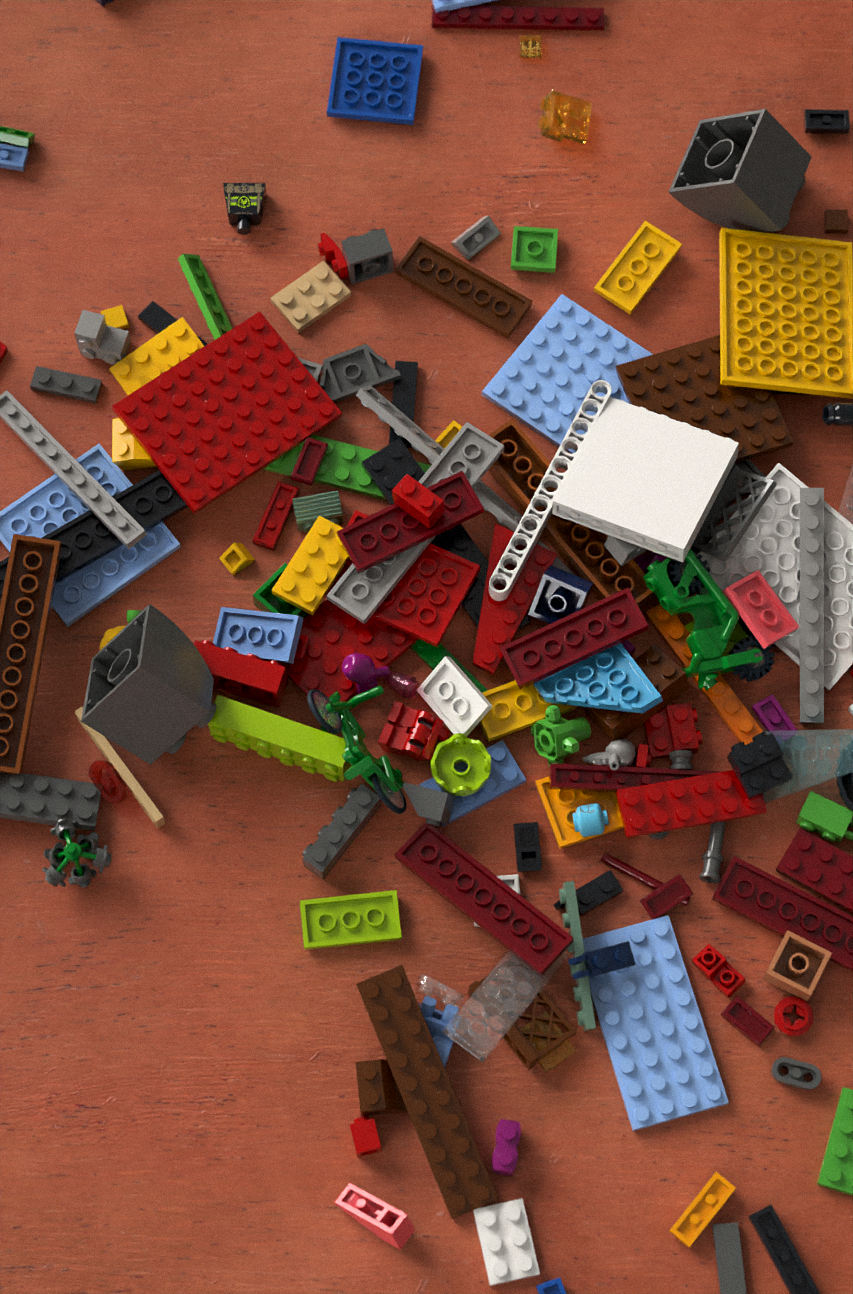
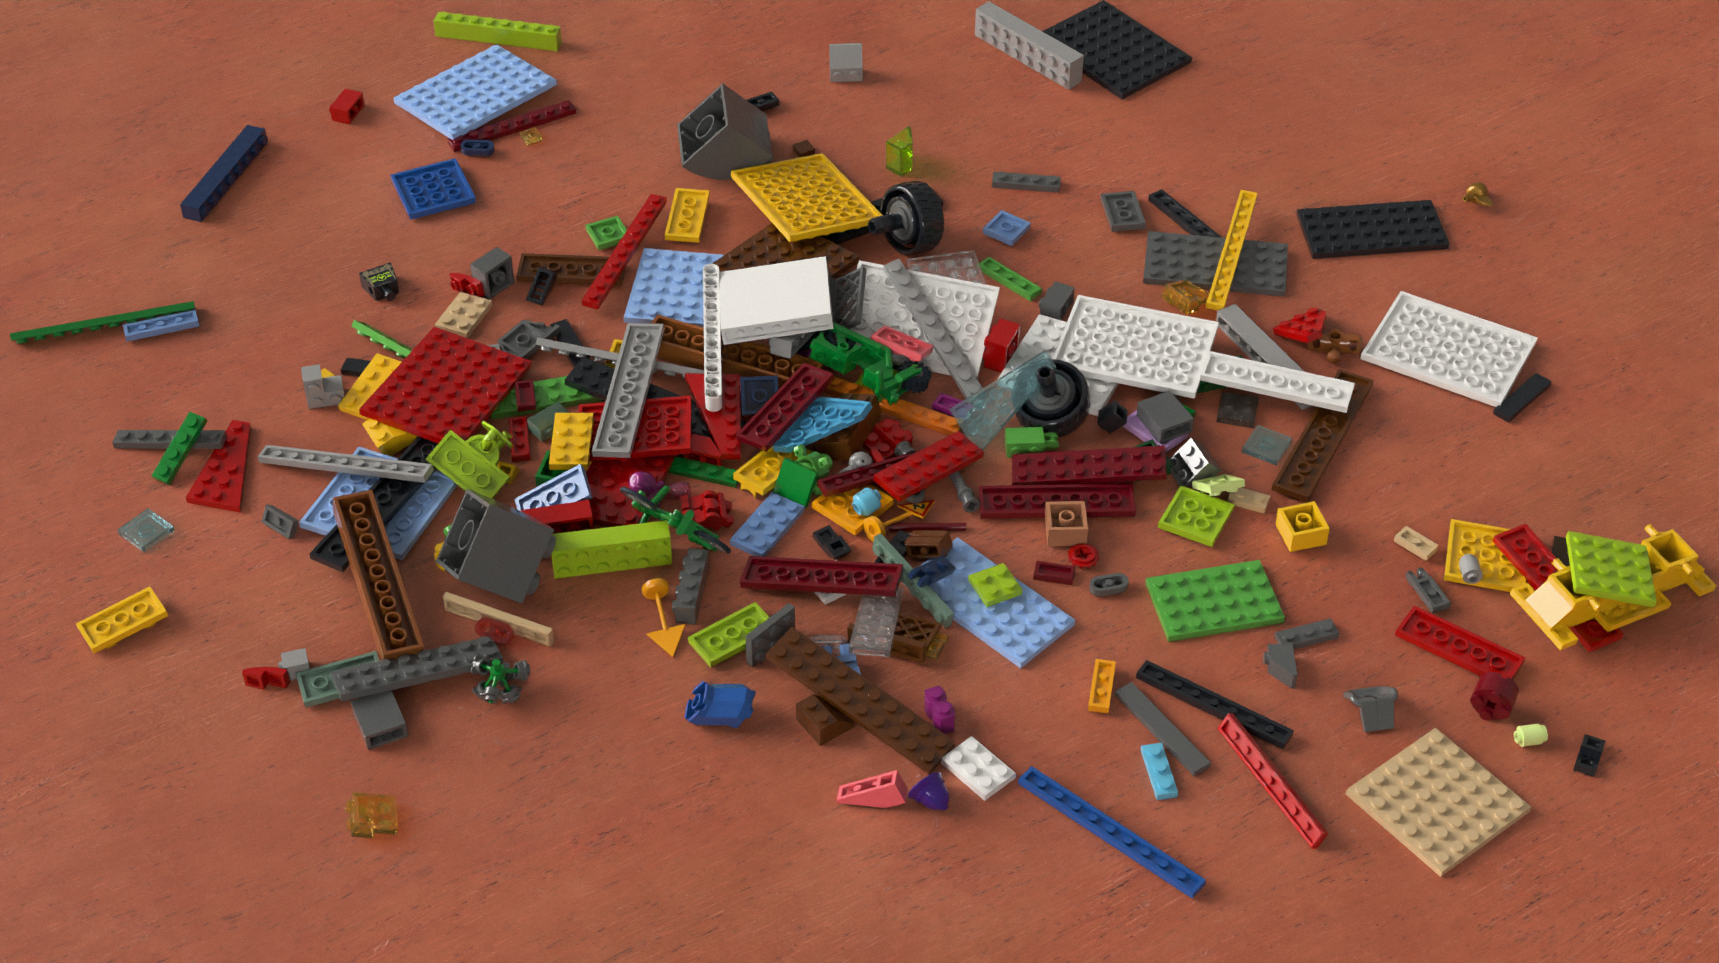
camera: 30 degrees left, 25 degrees down
(66, 384) = (310, 428): dark grey plate -> none
(196, 542) = (473, 461): none -> lime plate
(280, 1015) = (720, 704): none -> blue brick
(282, 884) = (667, 637): none -> light orange piece
(365, 1136) = (833, 751): red brick -> none
(383, 951) = (768, 633): none -> dark grey plate
(396, 531) = (625, 385): dark red plate -> none
(418, 501) = (625, 364): red brick -> none
(430, 803) = (745, 539): dark grey slope -> none
(432, 293) = (552, 276): none -> black slope
(434, 1255) = (931, 792): none -> dark purple piece
(454, 697) = (722, 476): white plate -> none
(457, 750) = (746, 503): lime plate -> none
(459, 37) = (477, 147): none -> dark blue plate
(459, 641) = (704, 450): none -> red slope
(476, 237) = (562, 242): light grey slope -> none
(530, 747) = (795, 482): none -> green tile
(534, 292) = (624, 251): none -> red plate
(564, 117) = (581, 159): clear yellow plate -> none
(626, 914) = (928, 544): none -> reddish brown brick
(648, 849) = (874, 526): none -> light orange piece
(665, 1010) = (995, 585): none -> lime plate
(666, 897) = (952, 522): dark red tile -> none
(718, 971) = (1010, 553): red slope -> none
(759, 764) = (961, 423): black plate -> none

